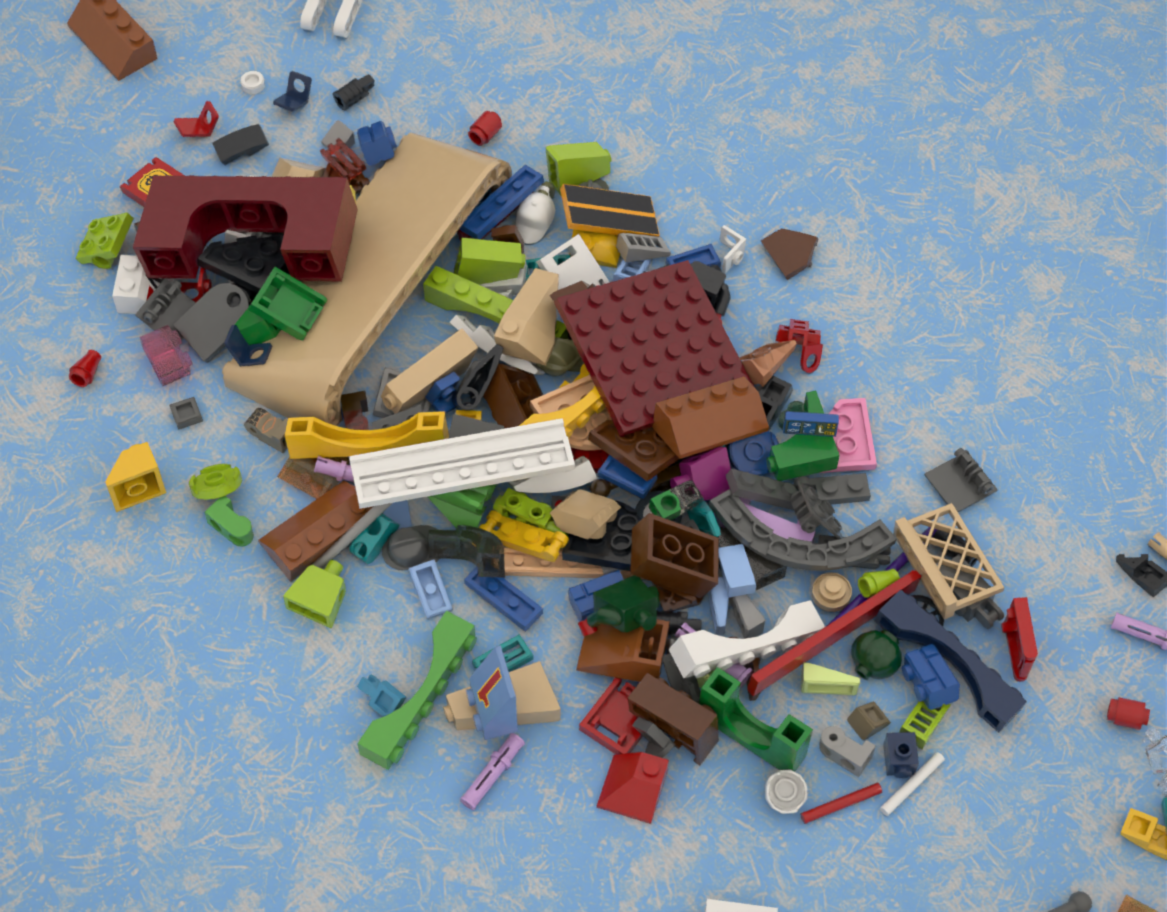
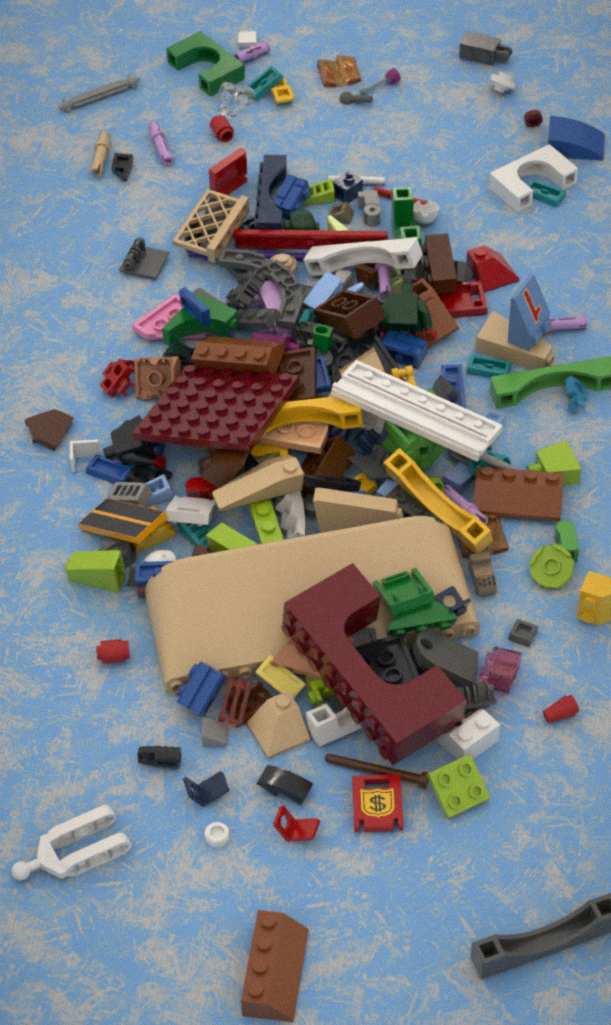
camera: 130 degrees left, 10 degrees down
(874, 582) = (259, 245): lime cone -> none

